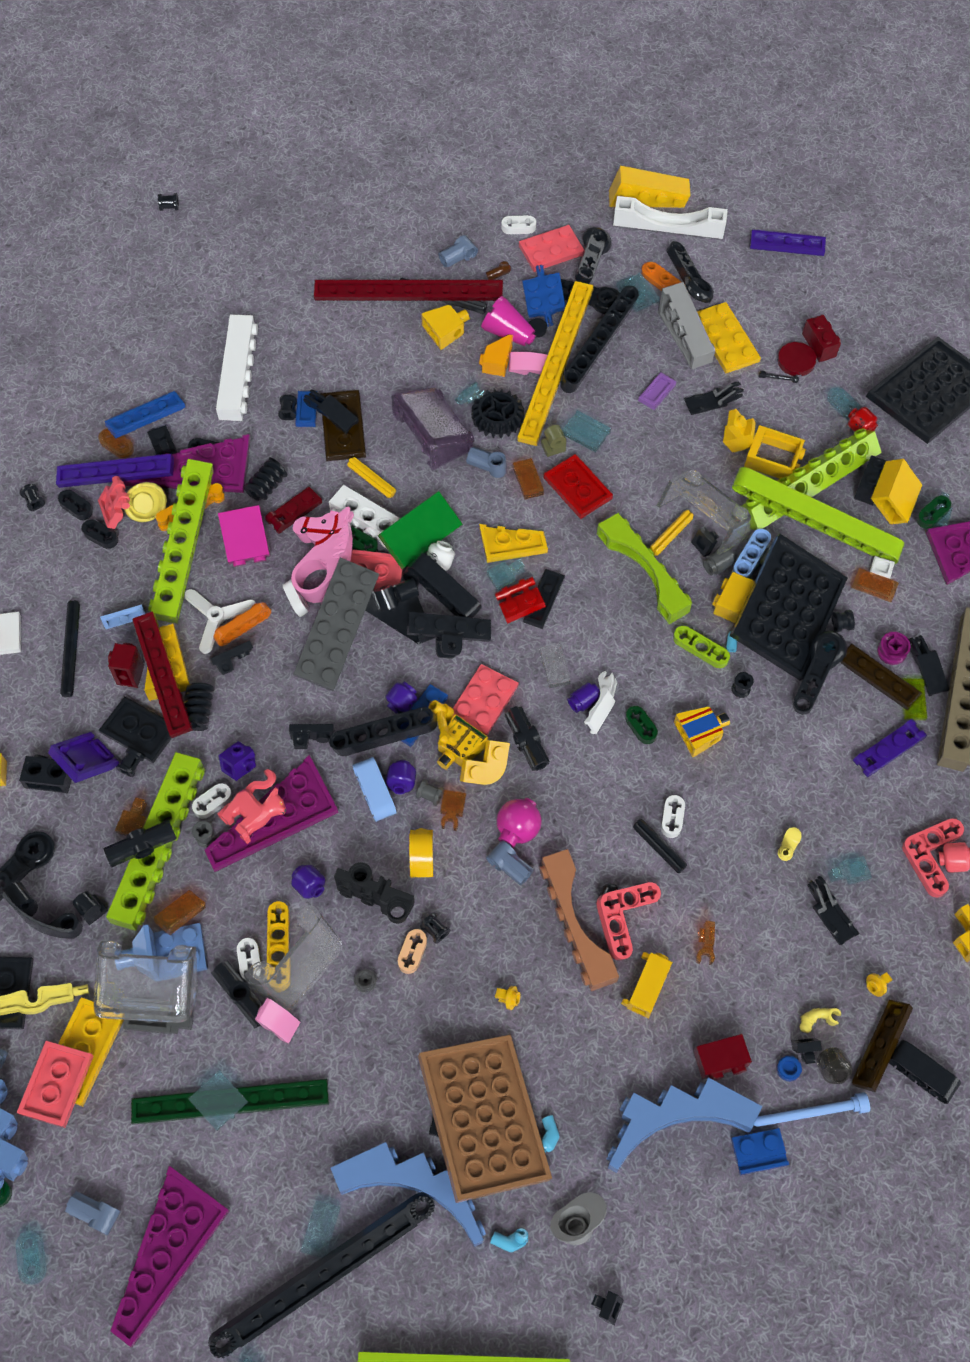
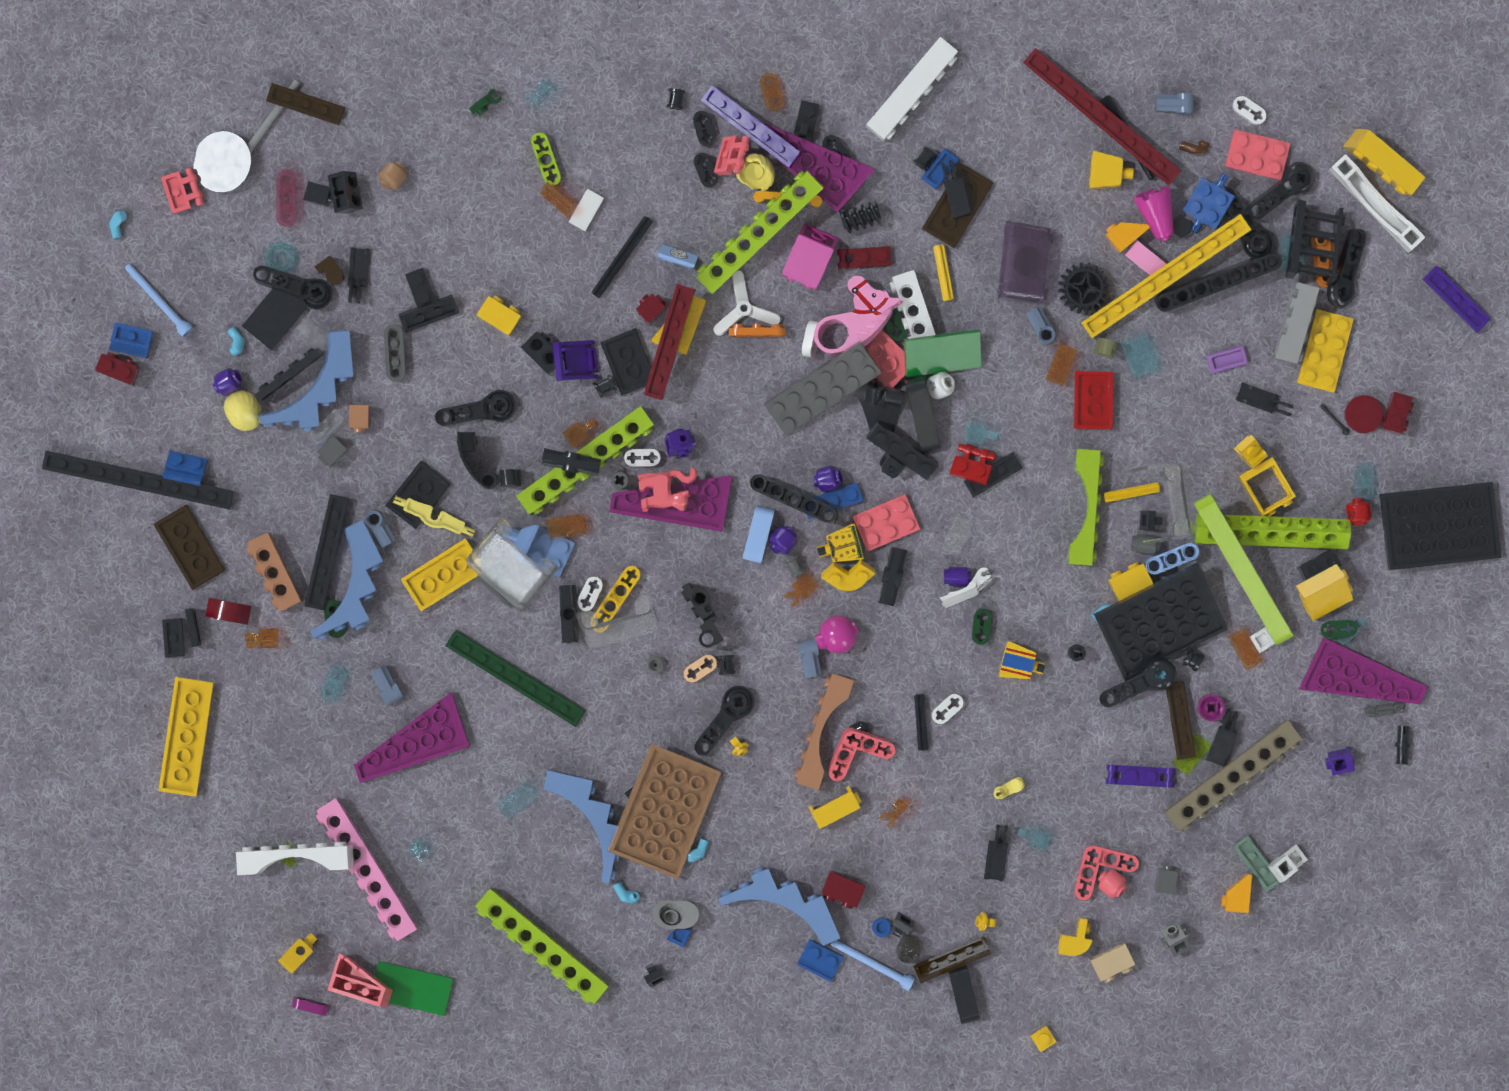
camera: 35 degrees right, 25 degrees up
(55, 1084) = (413, 588): coral plate -> none
(144, 414) = (810, 83): blue tile -> none
(197, 703) = (681, 376): black piece -> none
(218, 1100) = (508, 673): clear light blue piece -> none
(223, 660) = (724, 350): black hinge -> none
(277, 1020) = (579, 651): bright pink slope -> none
(303, 732) = (737, 455): black hinge -> none
(308, 881) = (665, 569): dark purple head -> none
(320, 1275) = (500, 827): black plate -> none
(421, 853) = (756, 605): yellow brick -> none
(443, 714) = (847, 514): yellow brick -> none
(469, 394) = (1074, 254): clear light blue plate -> none
(473, 976) = (728, 714): none -> black beam
(509, 544) = (1004, 411): yellow wing -> none
(601, 1242) = (679, 936): none -> blue tile
(642, 278) = (1296, 248): none -> black fence
(698, 638) = (1074, 585): lime beam -> none
(809, 1018) = (926, 908): light yellow piece -> none

